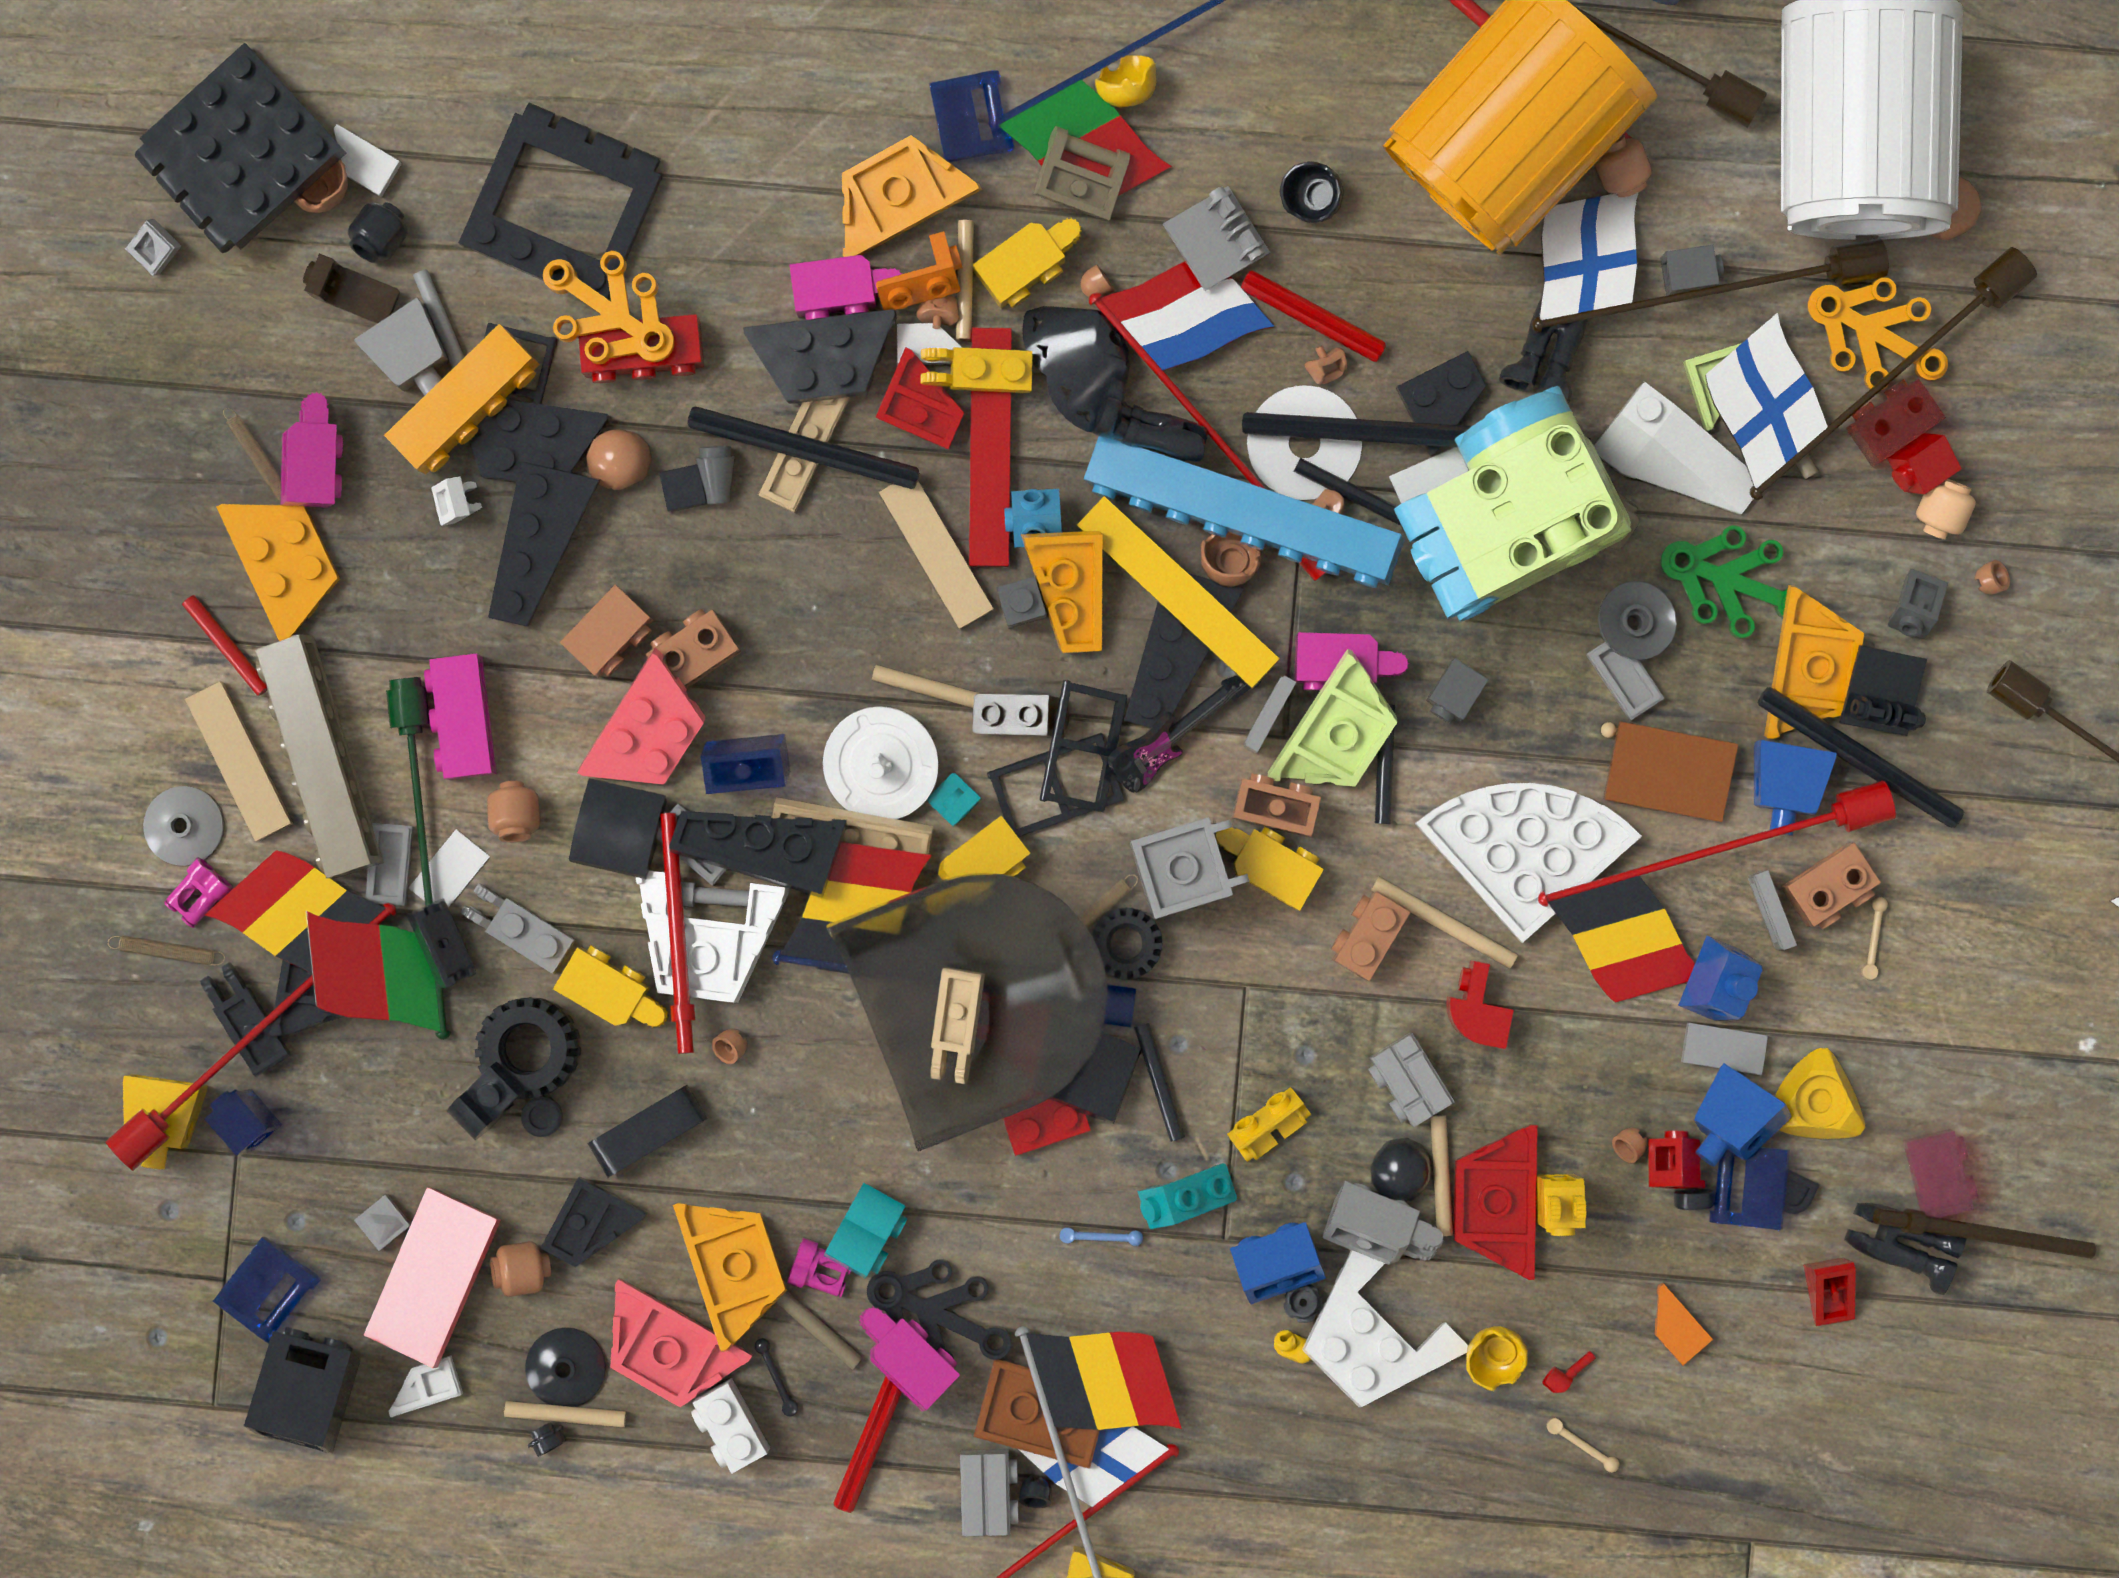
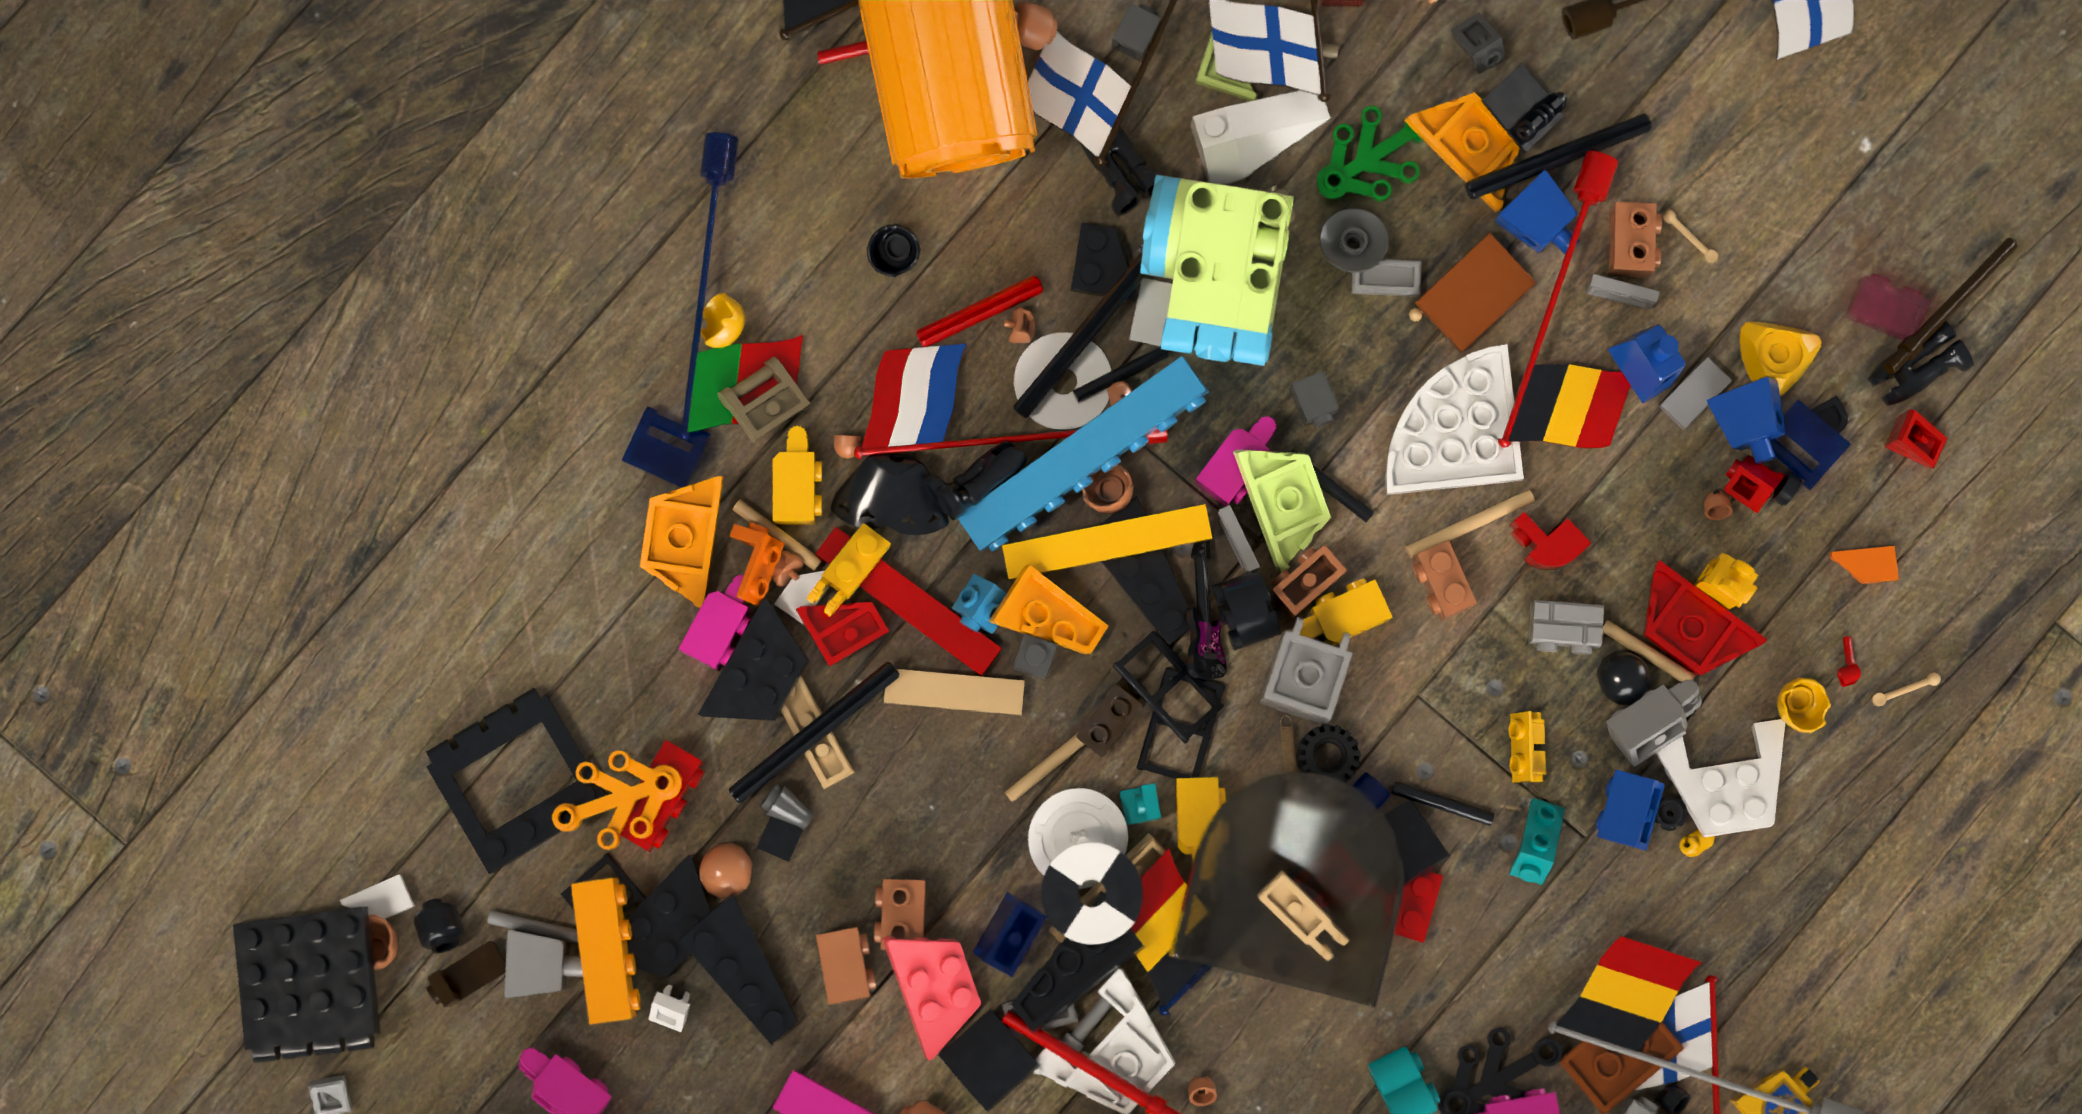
camera: 60 degrees left, 5 degrees down
(870, 812) = (1097, 923): none -> sticker
(1068, 1235) = (1506, 946): medium blue hinge -> none
(1207, 768) = (1246, 610): none -> black brick
(1216, 238) = (876, 339): light grey hinge -> none

